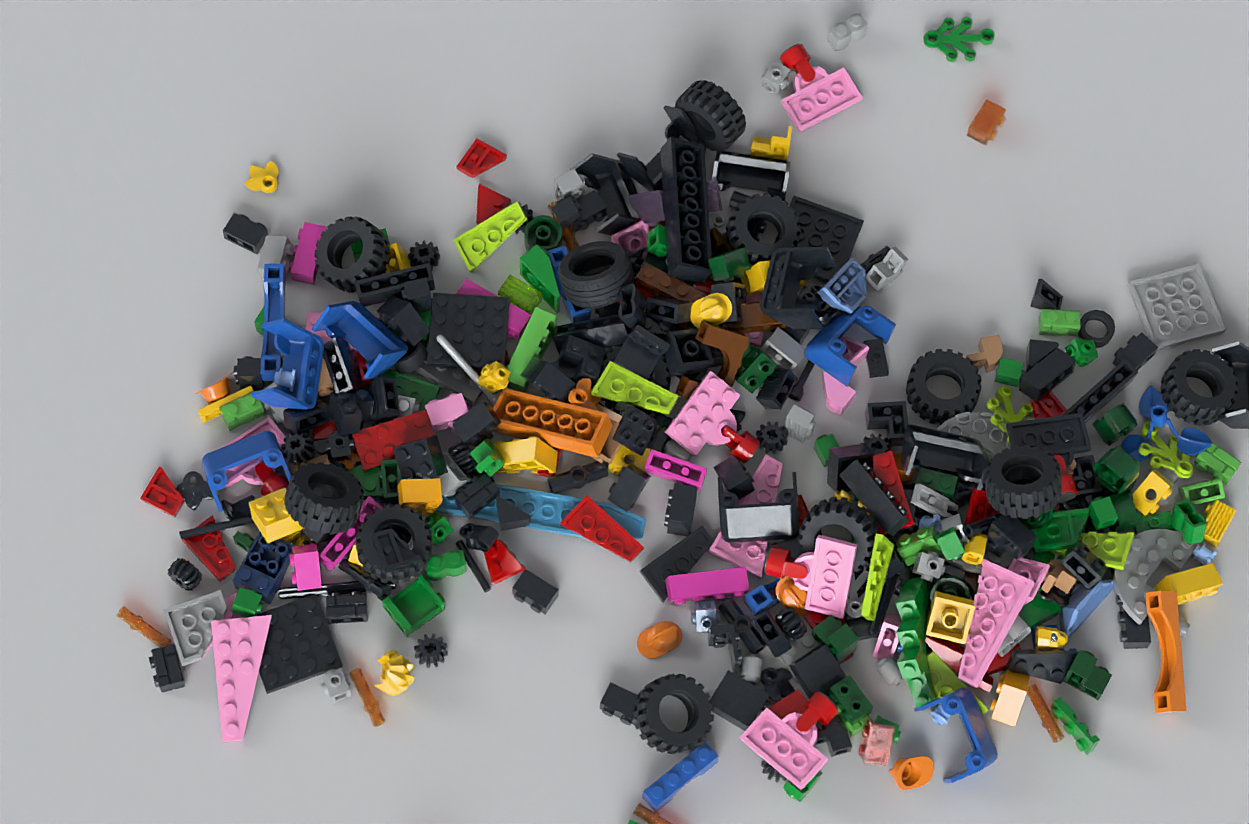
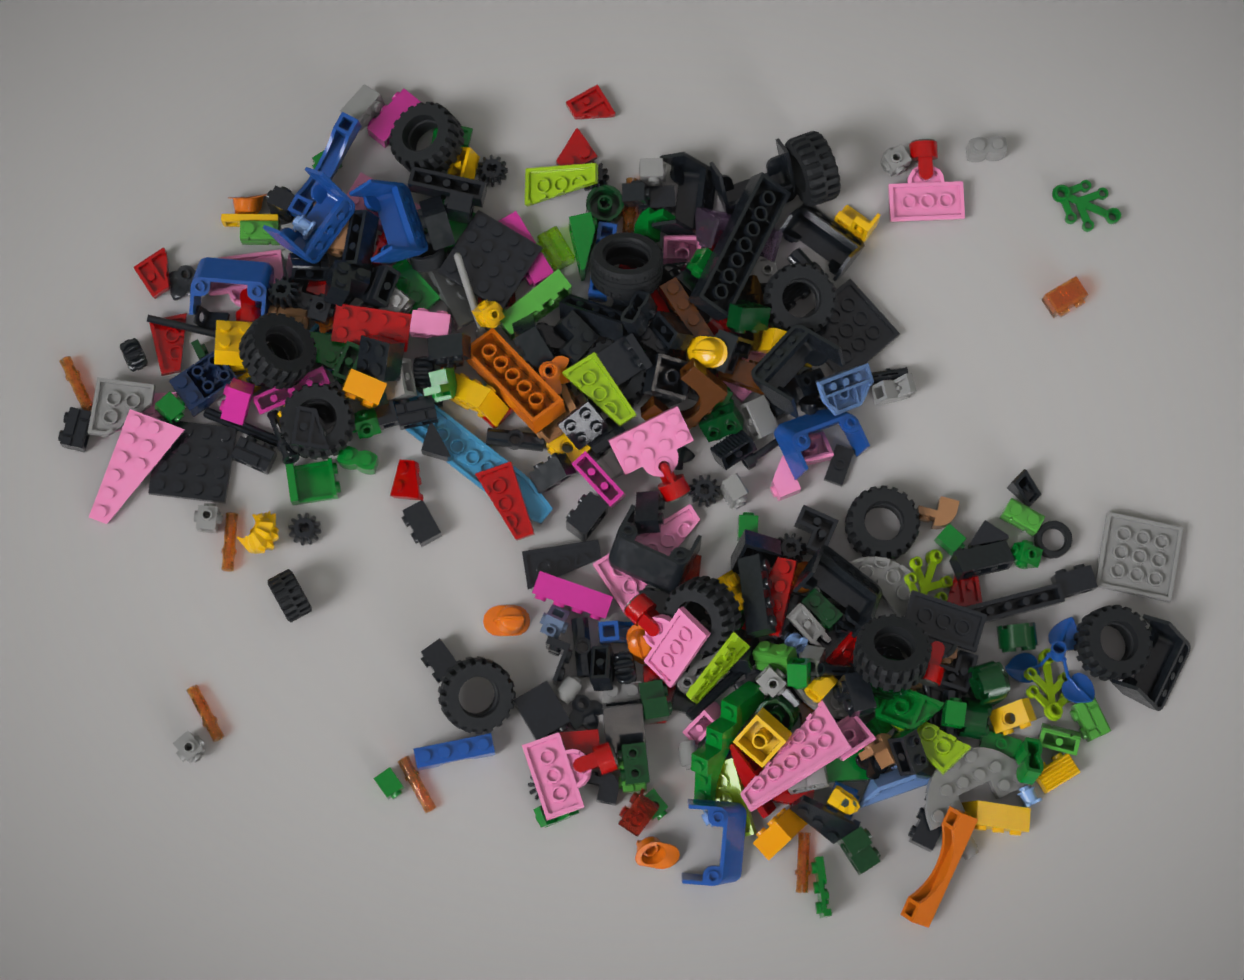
camera: 25 degrees right, 10 degrees up
(245, 233) = (349, 71): black brick -> none
(261, 176) = (392, 26): yellow plate -> none
(451, 510) = (387, 415): none -> black panel
(452, 713) = (289, 595): none -> black tyre
(473, 566) = (383, 472): black bar -> none
(479, 536) = (399, 450): black piece -> none
(587, 229) = (647, 217): none -> green brick

